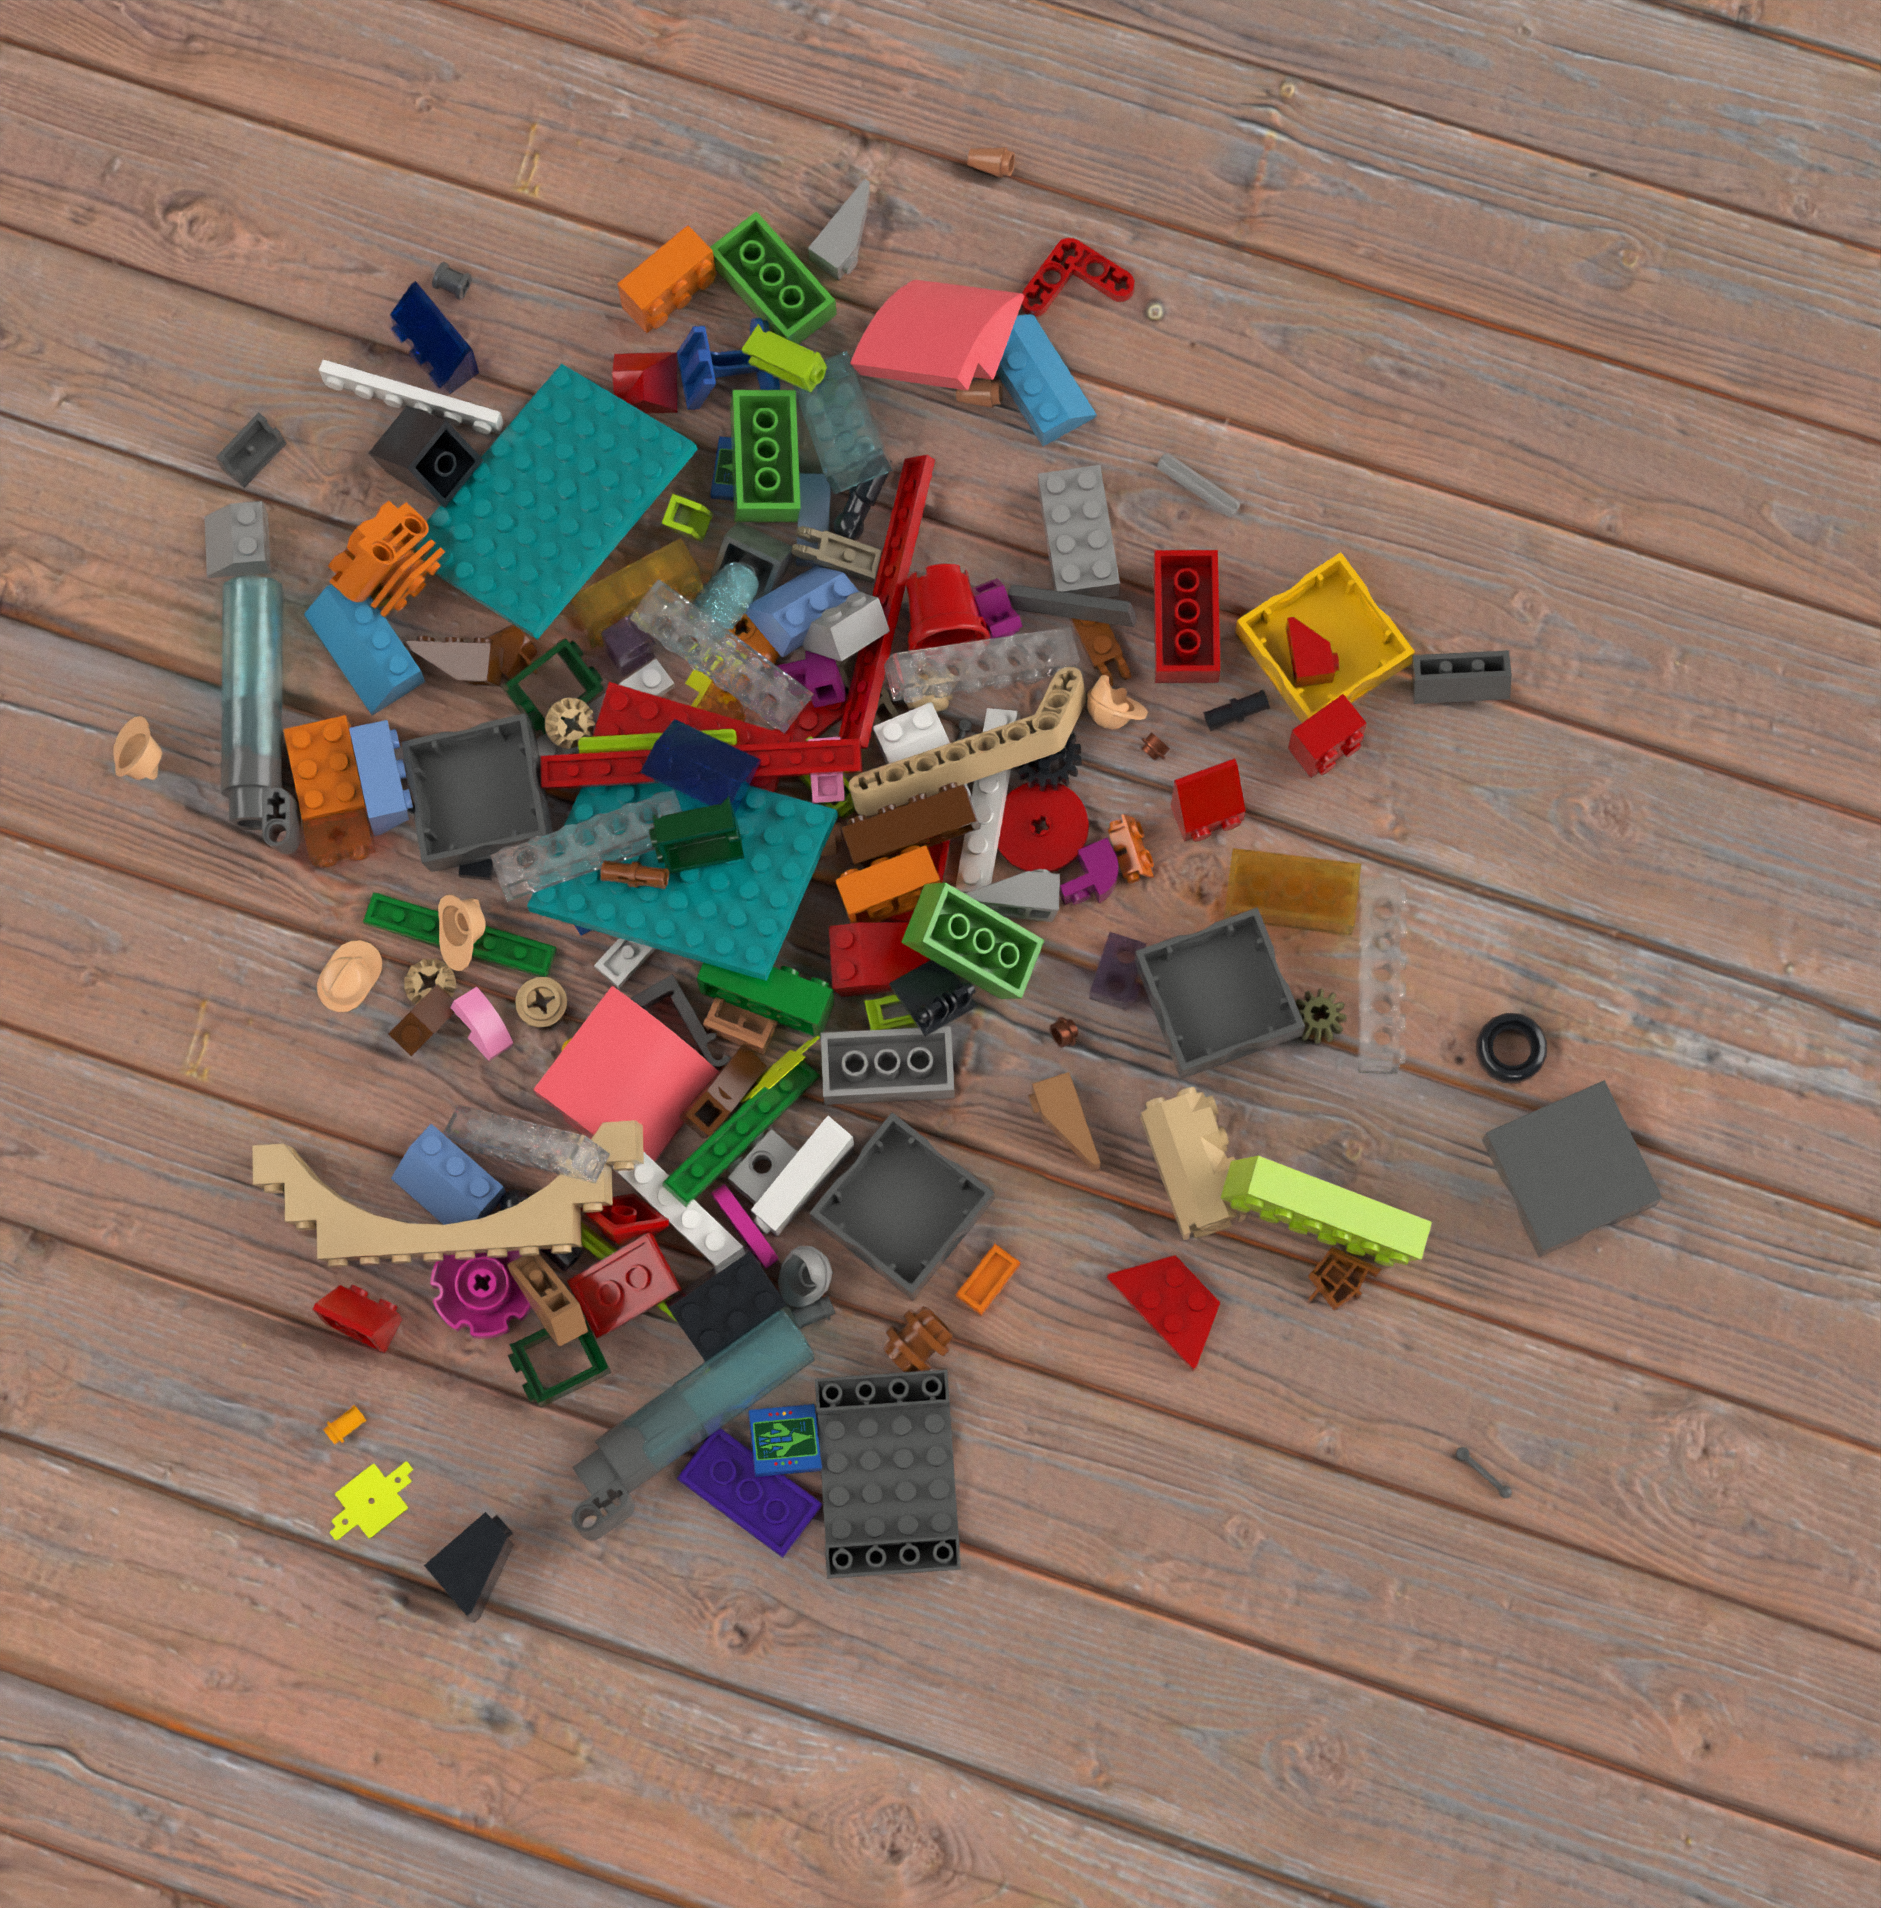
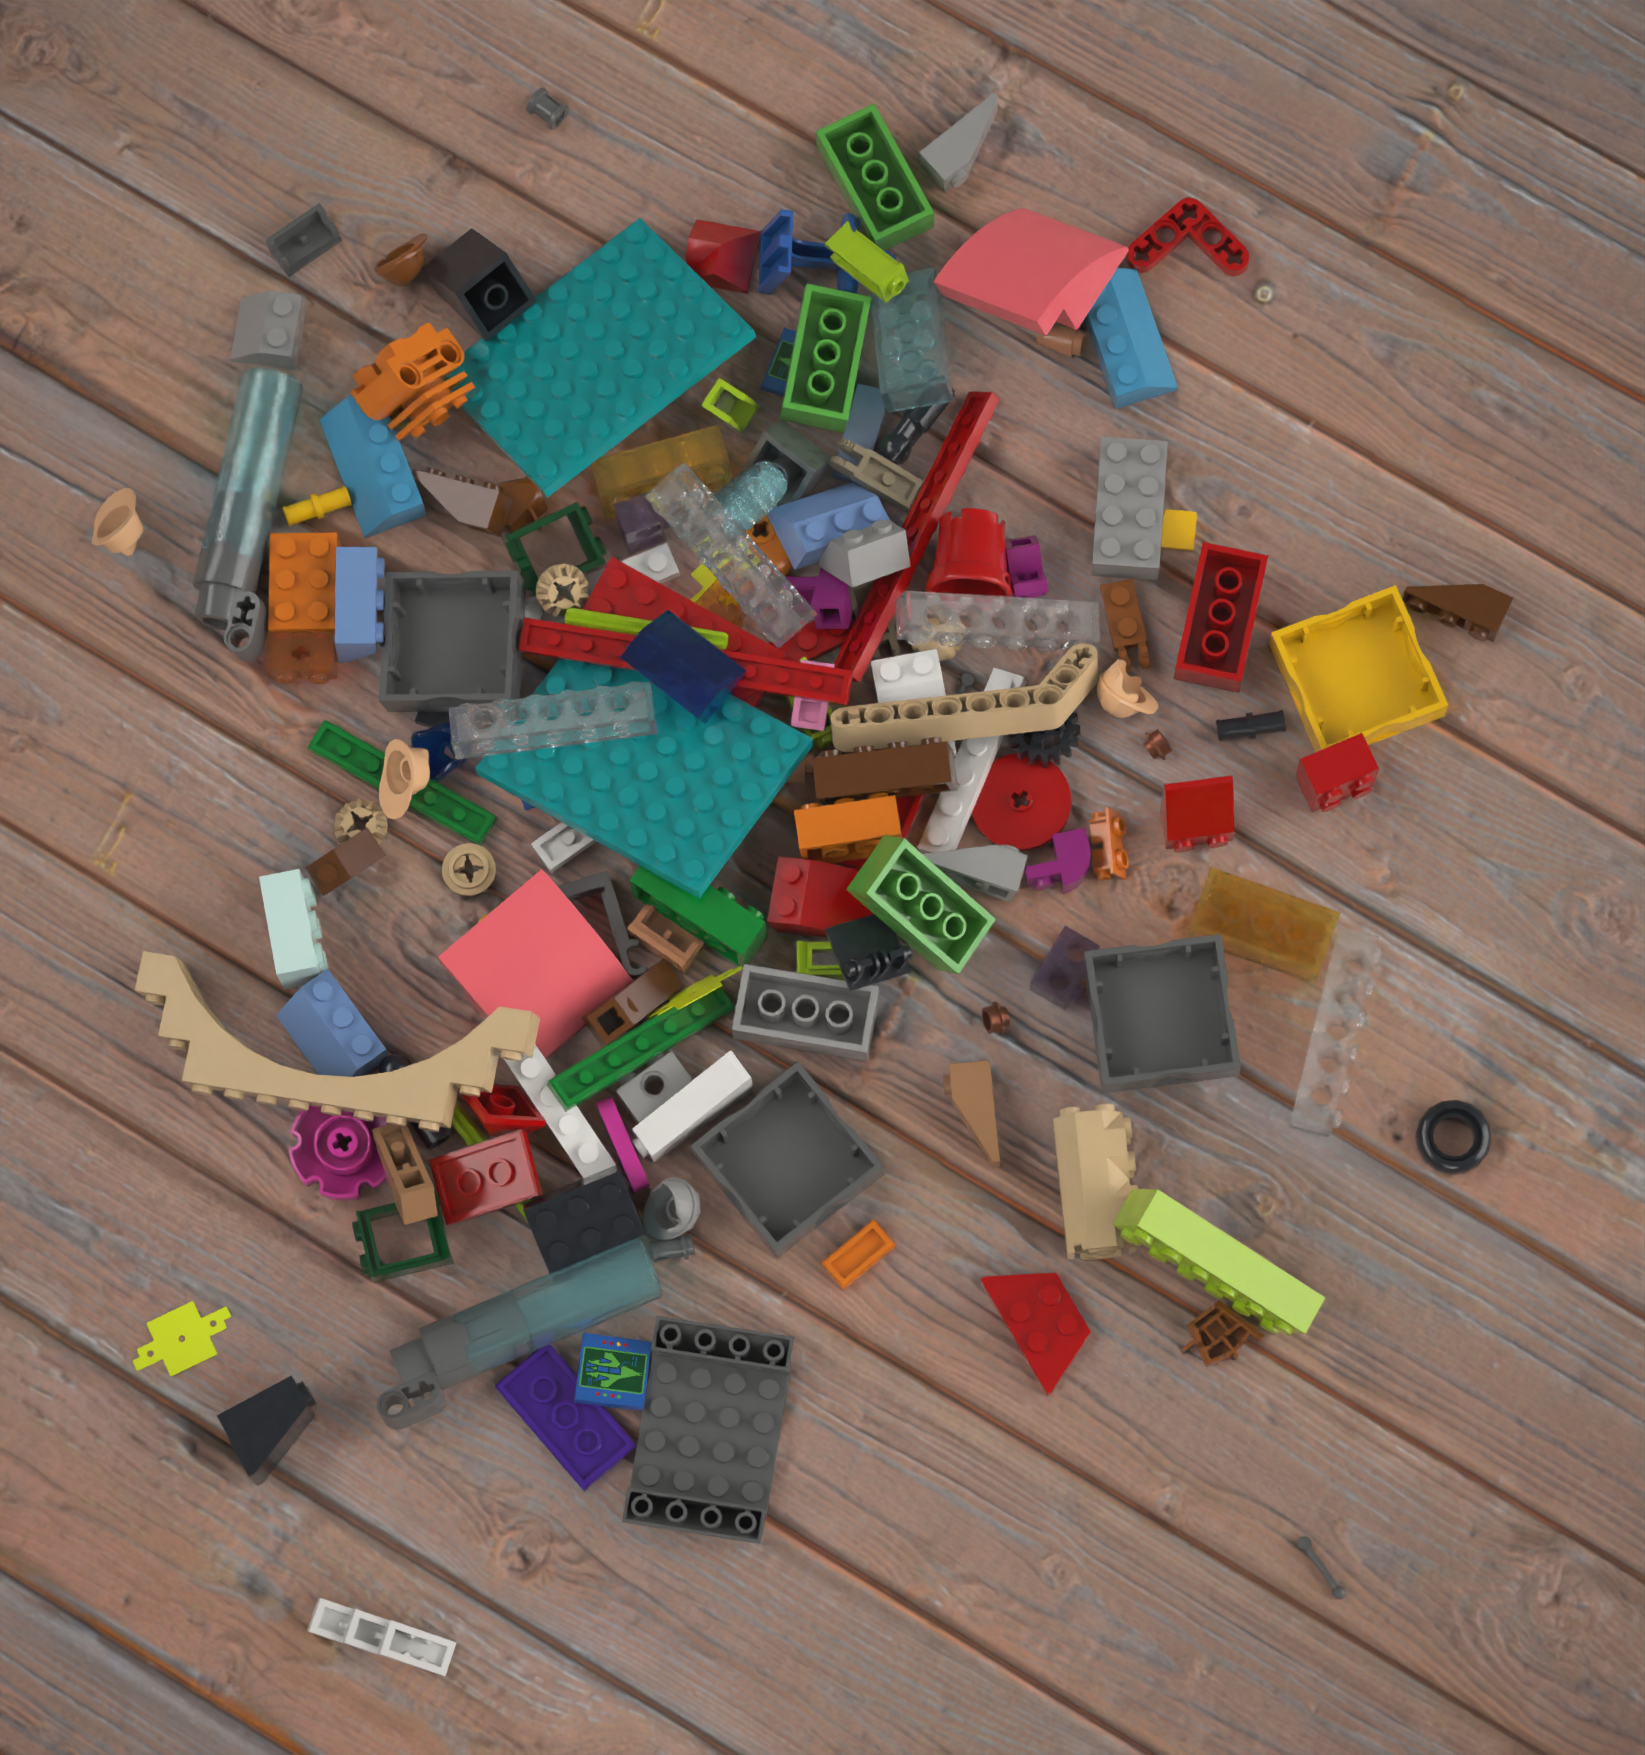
camera: 15 degrees right, 0 degrees up
(320, 695) = (317, 506): none -> yellow pin
(344, 1425) = (171, 1255): light orange pin -> none
(349, 976) = (281, 799): light nougat piece -> none
(350, 451) = (403, 262): none -> dark orange hat
(359, 1317) = (211, 1149): red slope -> none
(389, 1092) = (293, 927): none -> light aqua brick
(400, 394) = (467, 214): white plate -> none
(433, 340) = (513, 166): clear blue slope -> none
(482, 889) = (435, 741): none -> clear blue hair
(486, 1026) = (407, 881): bright pink slope -> none
(527, 1143) = (418, 1011): clear brick -> none
(625, 1737) = (381, 1637): none -> white slope
(634, 874) = (591, 760): dark orange pin -> none
(667, 279) = (767, 154): orange brick -> none
(697, 837) = (662, 736): dark green window -> none
(917, 1340) = (771, 1300): dark orange piece -> none
(992, 160) = (1131, 101): nougat cone -> none
(1072, 605) = (1105, 580): dark grey tile -> none
(1128, 544) = (1178, 529): none -> yellow slope
(1198, 485) = (1266, 483): light grey axle -> none
(1310, 655) = (1340, 685): red slope -> none
(1323, 1026) = (1262, 1048): olive gear -> none
(1412, 558) = (1468, 606): none -> reddish brown slope
(1461, 677) = (1491, 741): dark grey brick -> none
(1572, 1168) = (1486, 1275): dark grey tile -> none

